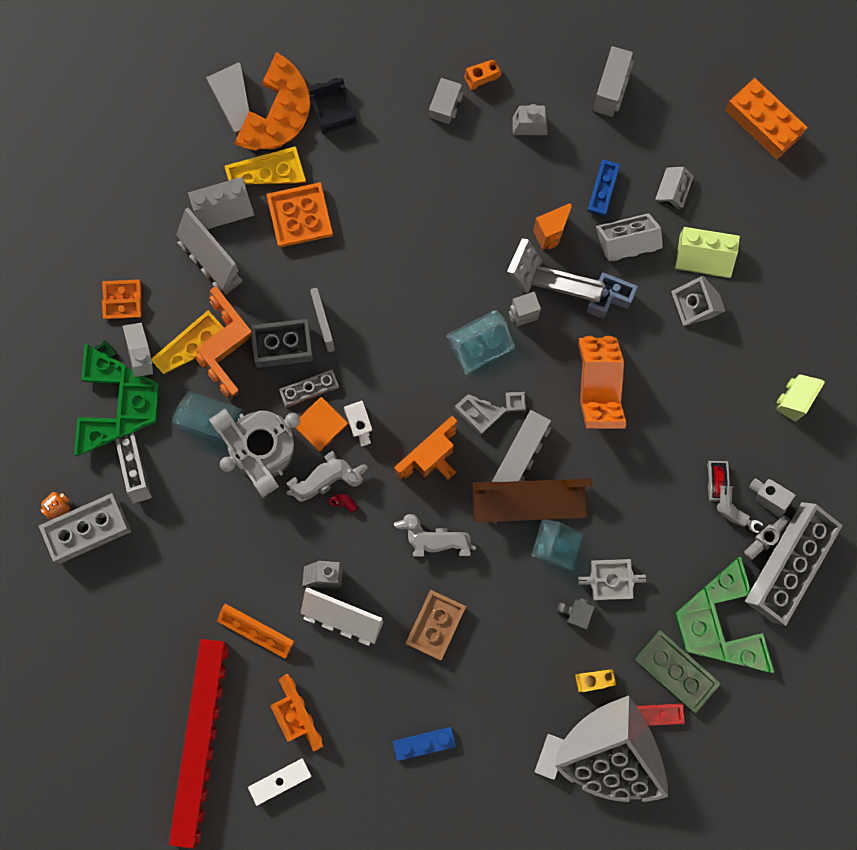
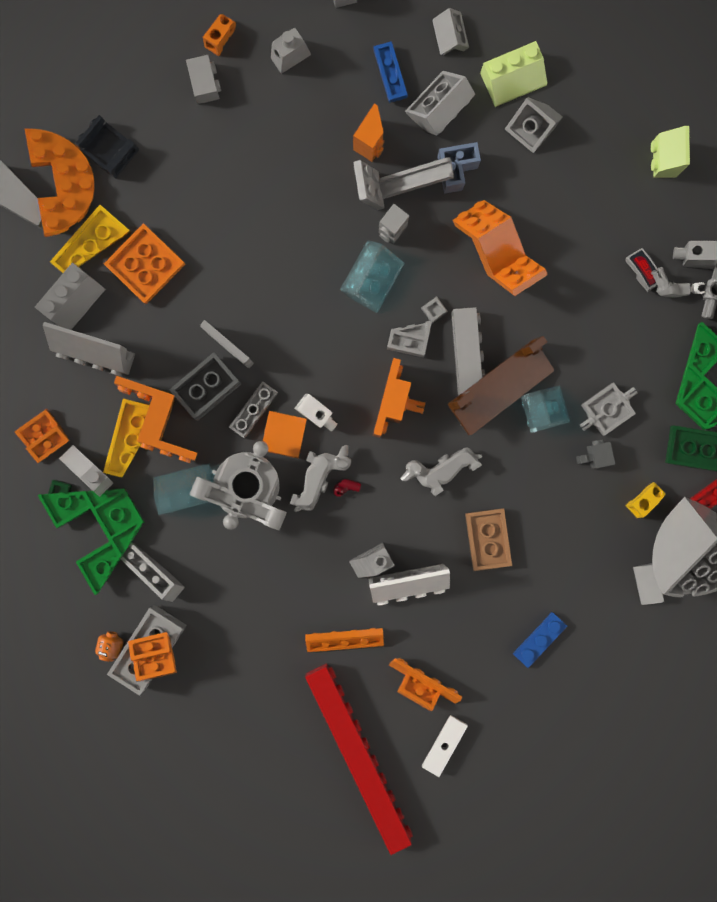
camera: 35 degrees left, 10 degrees up
(86, 534) = (152, 656): none -> orange slope

